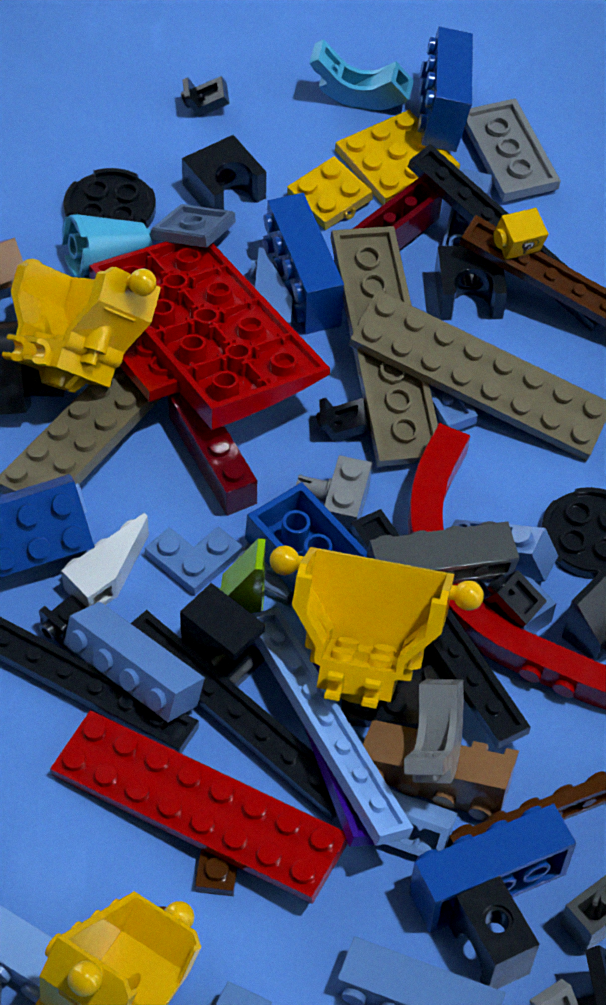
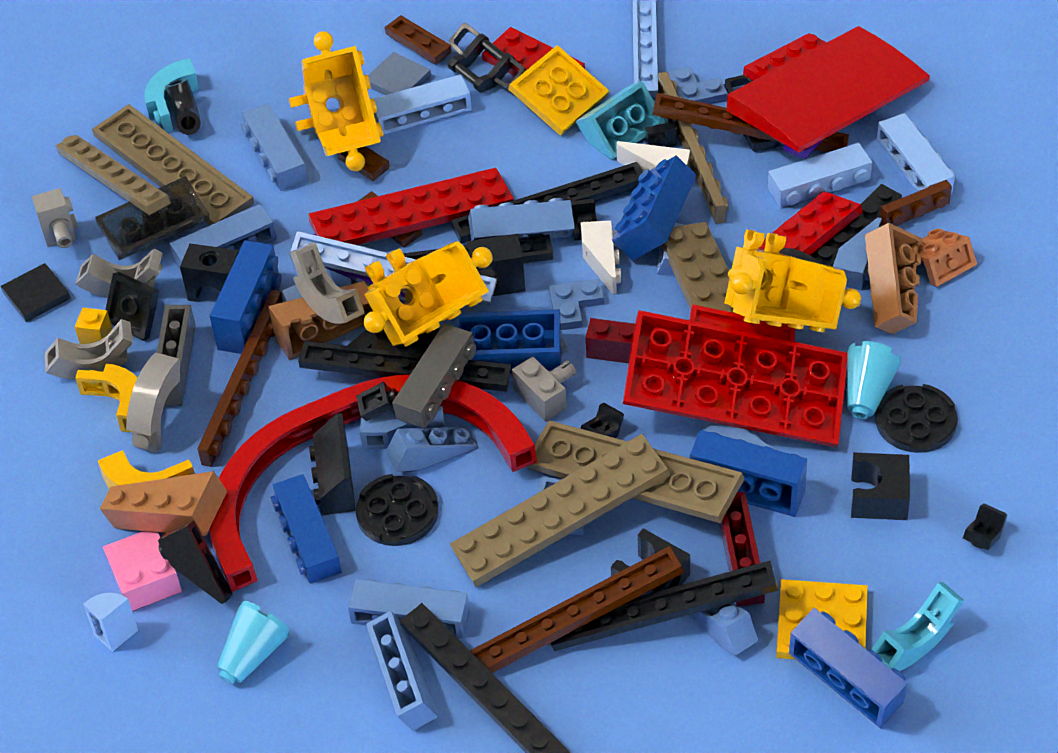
camera: 135 degrees right, 5 degrees down
(193, 225) = (840, 436): sand blue tile -> none
(246, 578) = (513, 288): lime slope -> none
(332, 192) = (818, 551): yellow plate -> none
(510, 150) = (765, 697): light grey plate -> none
(520, 233) = (636, 575): yellow brick -> none

